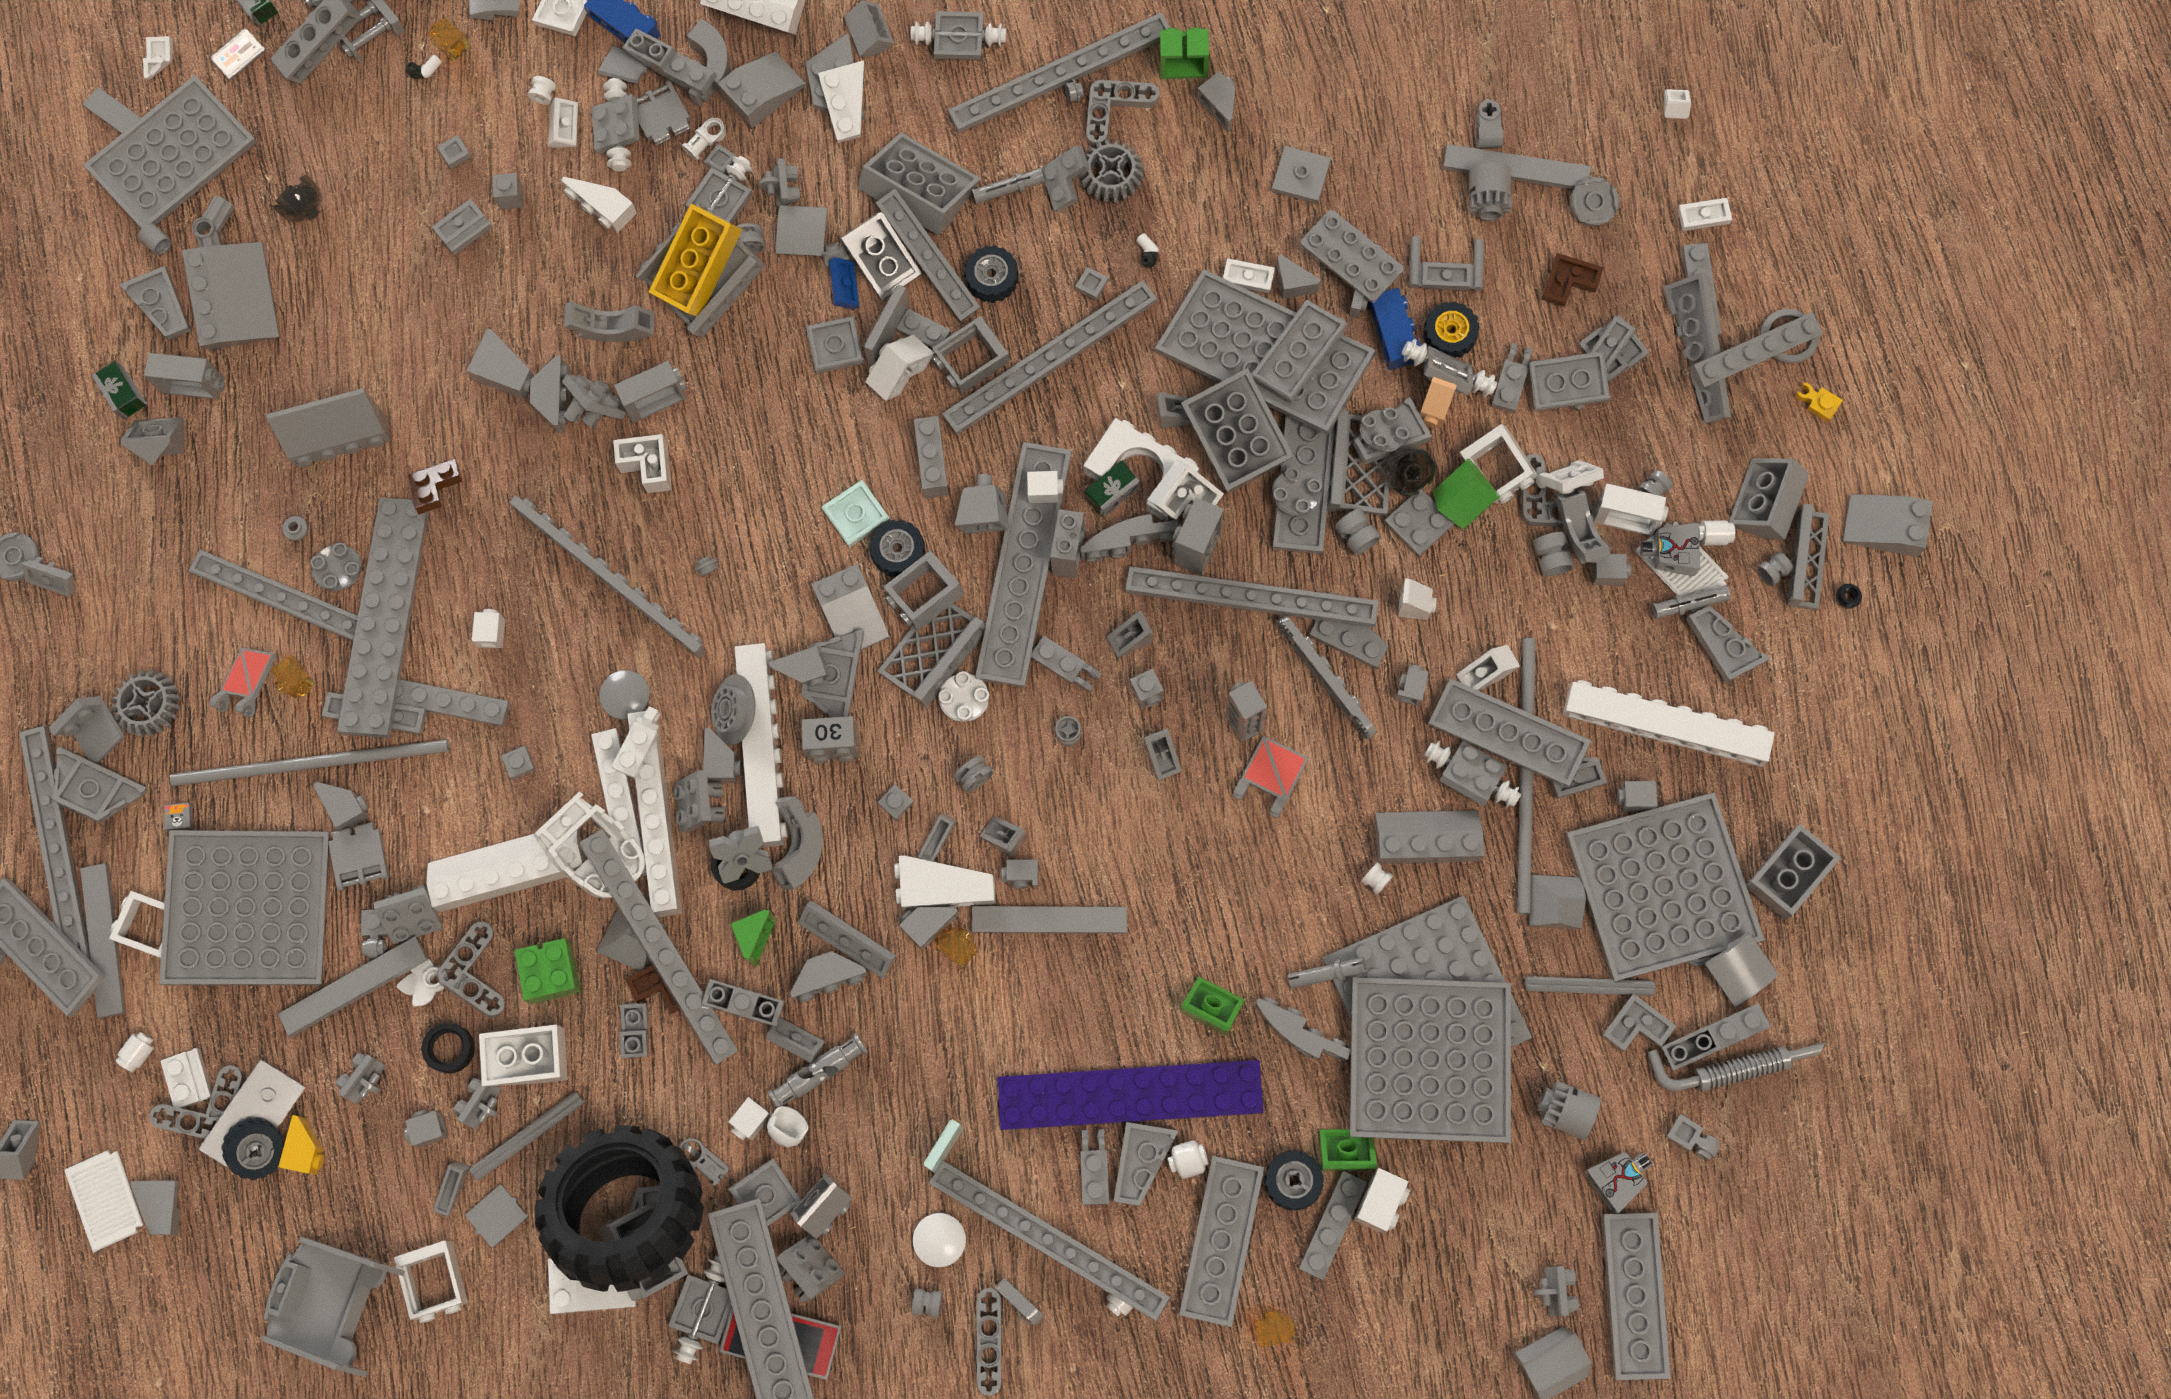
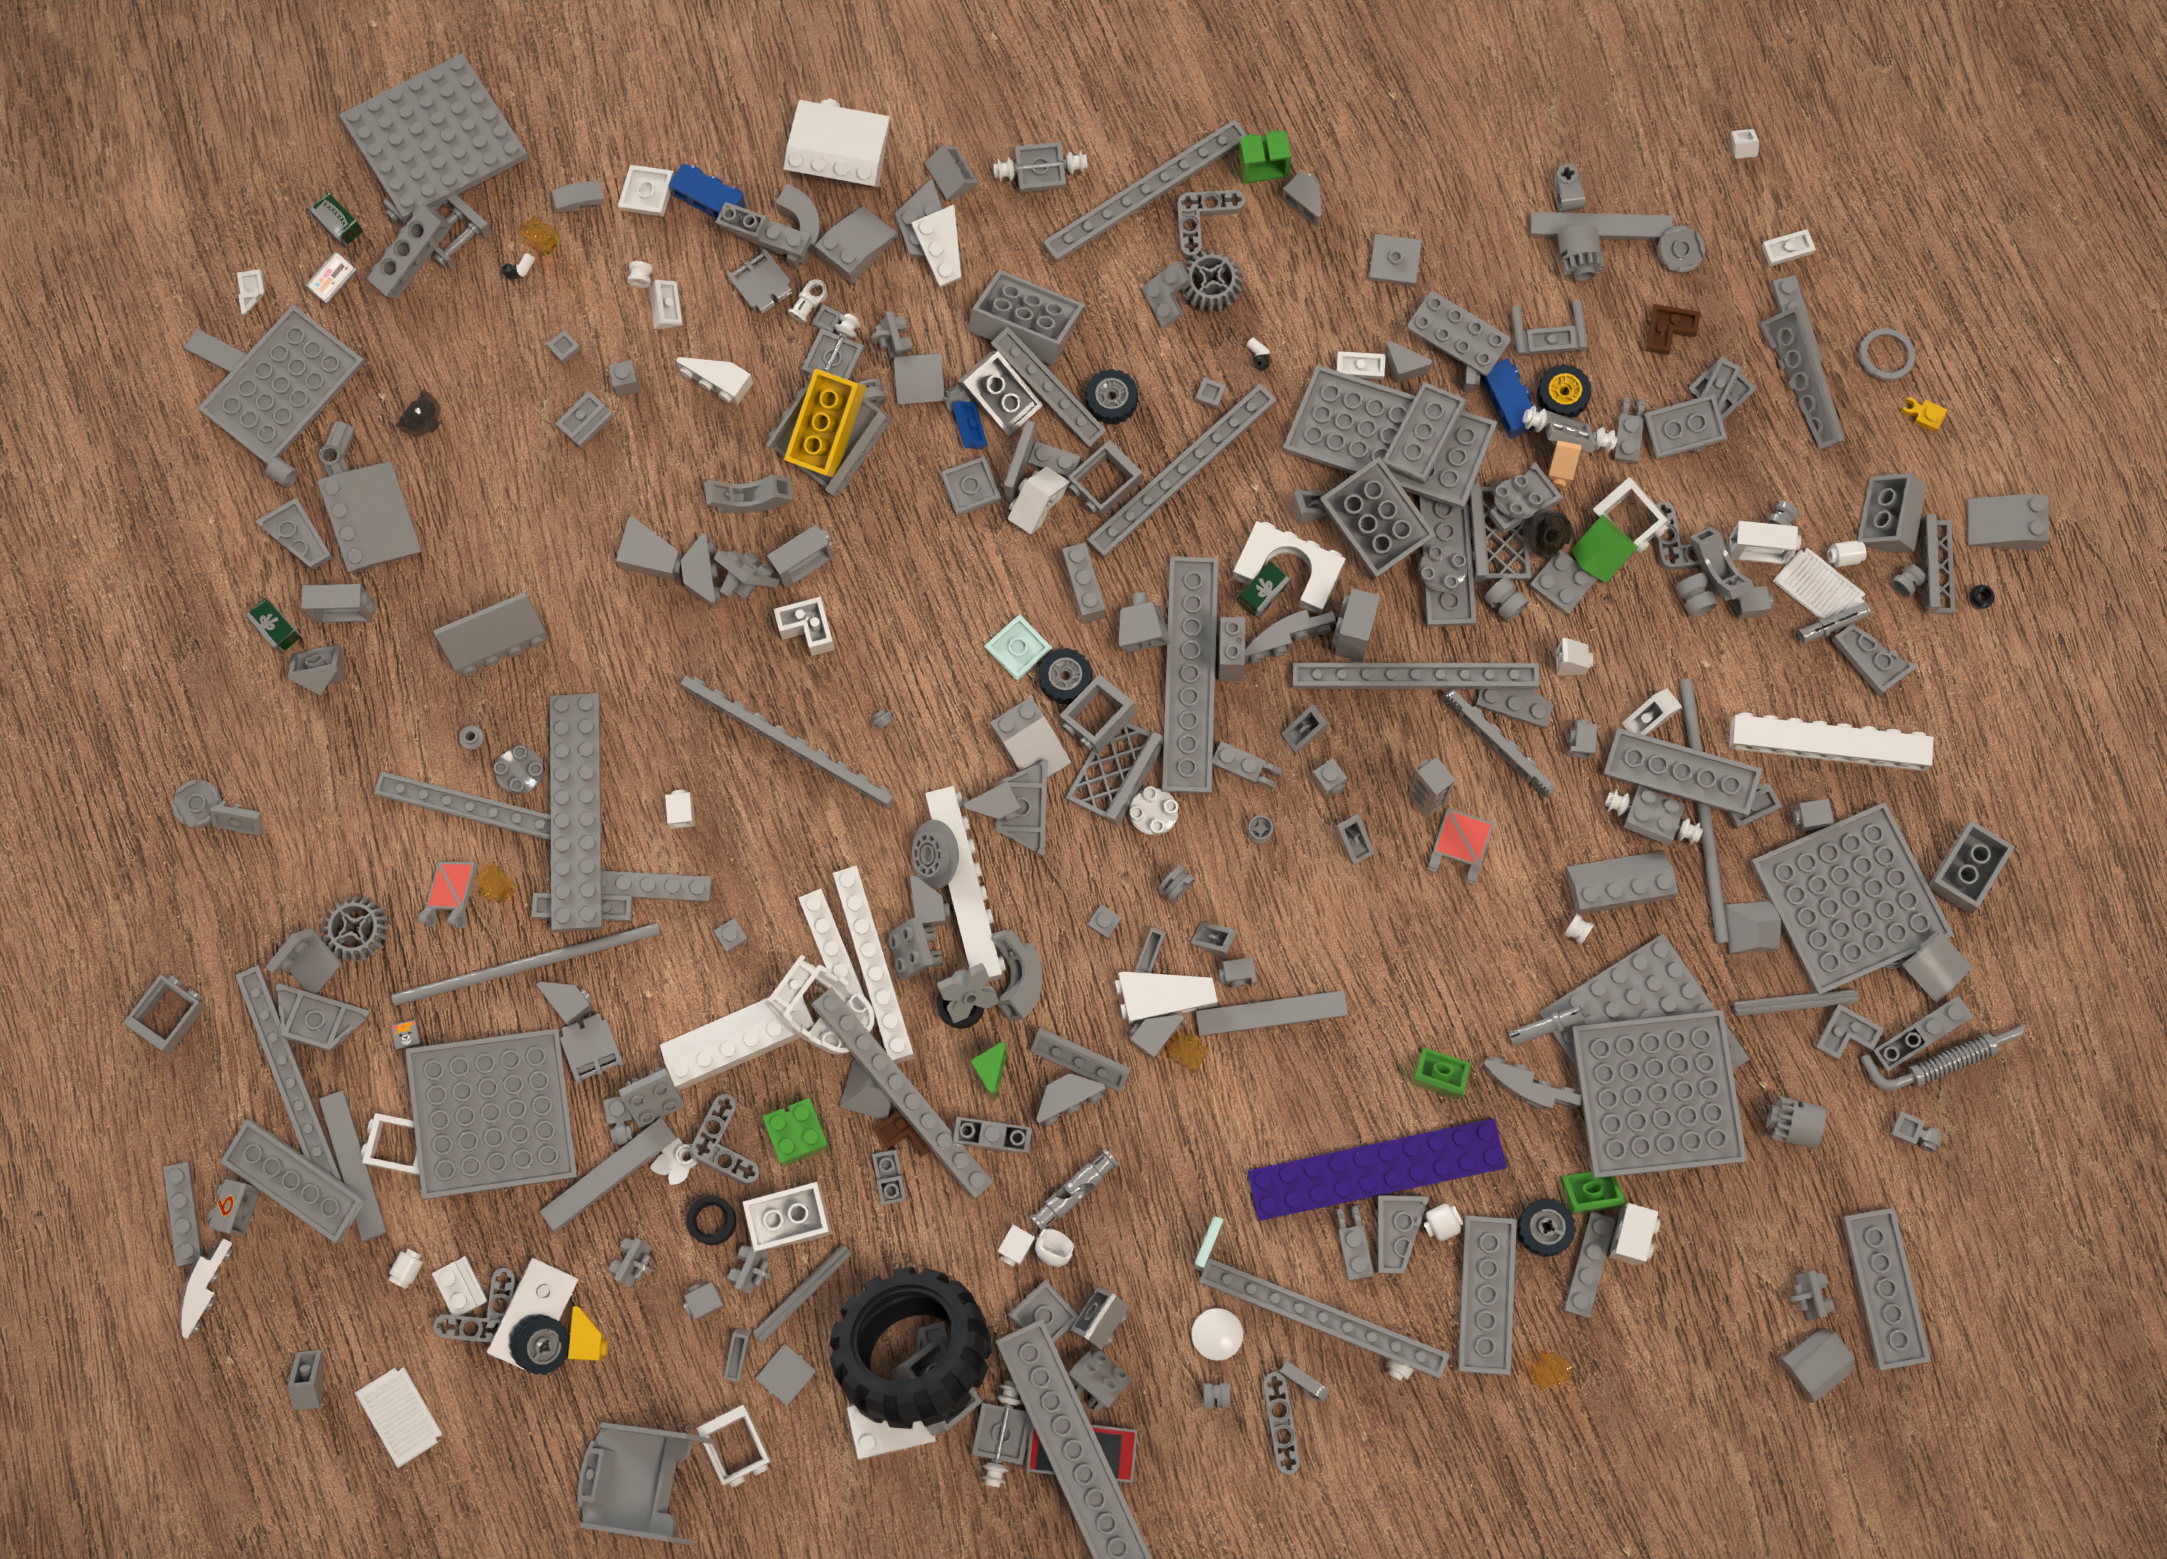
camera: 10 degrees left, 0 degrees up
(158, 1205) = (454, 1413): light grey slope -> none
(427, 483) = (595, 674): reddish brown plate -> none
(616, 124) = (719, 298): light grey plate -> none
(622, 66) = (715, 240): light grey piece -> none
(624, 694) = (823, 854): light grey dish -> none
(638, 744) = (849, 901): white hinge -> none
(707, 1162) = (983, 1294): light grey piece -> none
(795, 1040) = (1047, 1164): light grey plate -> none
(830, 739) = (1034, 870): light grey brick -> none
(1008, 185) = (1113, 308): light grey pin -> none
(1044, 487) = (1199, 597): white brick -> none
(1074, 91) = (1161, 207): light grey plate -> none
(1180, 487) = (1333, 580): white brick -> none
(1570, 477) = (1702, 519): white plate -> none
(1619, 1179) = (1853, 1181): light grey torso -> none
(1675, 549) = (1811, 574): light grey torso -> none
(1756, 350) = (1859, 373): light grey plate -> none

